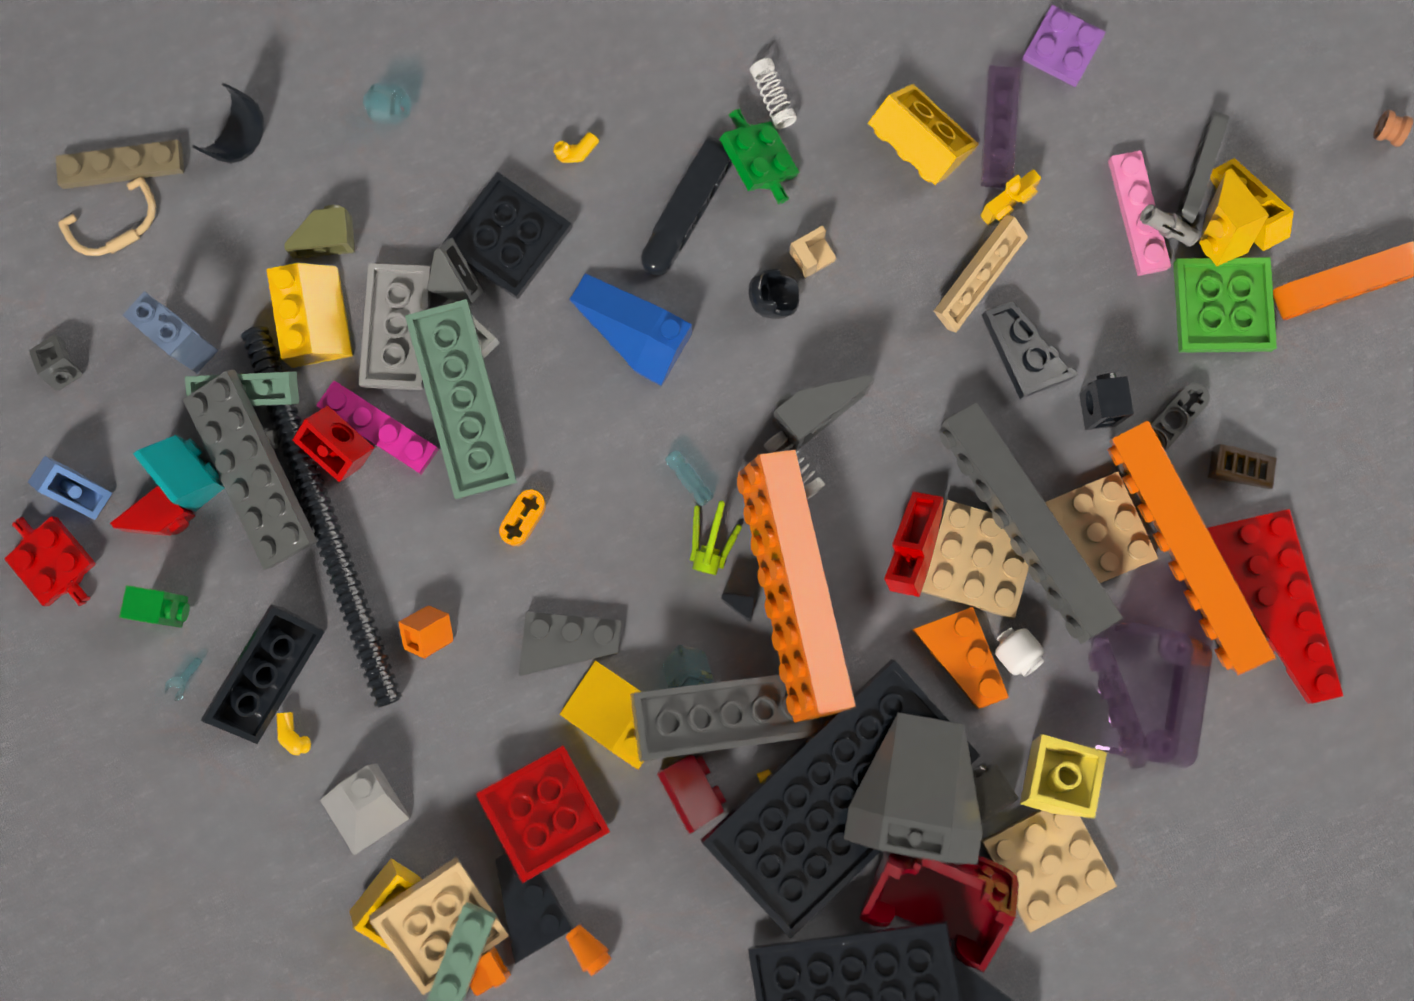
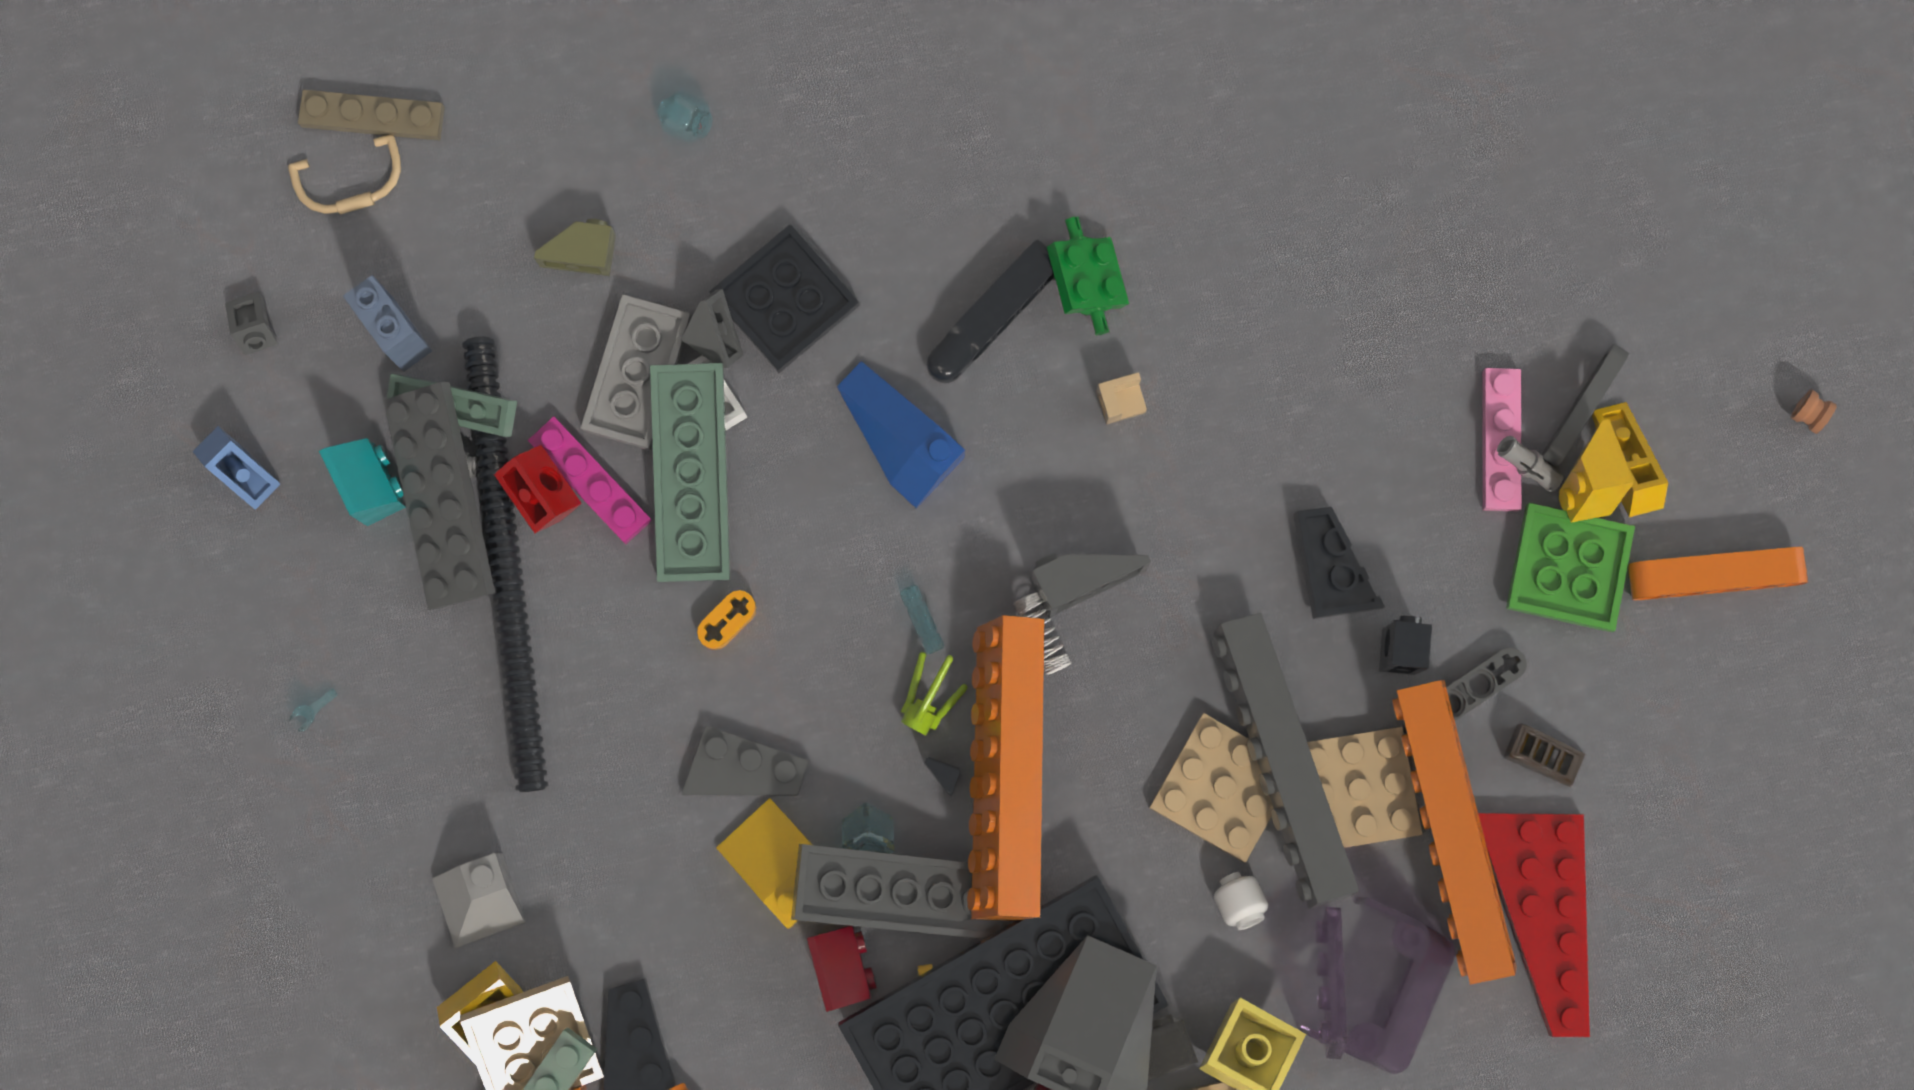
camera: 10 degrees right, 0 degrees up
(50, 561) = (196, 544): red plate -> none
(154, 515) = (323, 521): red slope -> none
(154, 606) = (302, 623): green brick -> none
(241, 132) = (512, 112): black piece -> none
(263, 674) = (403, 725): black slope -> none
(288, 737) = (413, 801): yellow arm -> none
(309, 313) = (544, 335): yellow slope -> none
(426, 631) = (591, 721): orange panel -> none
(542, 813) = (672, 951): red plate -> none
(575, 153) = (883, 221): yellow arm -> none
(763, 69) = (1116, 175): white piece -> none
(774, 294) = (1066, 436): black hair -> none
(914, 544) = (1154, 754): red slope -> none
(922, 133) = (1278, 292): yellow slope -> none
(965, 655) = (1180, 889): orange wing -> none
(980, 273) = (1304, 467): tan plate -> none
(1000, 126) = (1368, 305): clear purple plate -> none
(1016, 191) = (1364, 385): yellow plate -> none
(1063, 46) = (1464, 227): medium lavender plate -> none

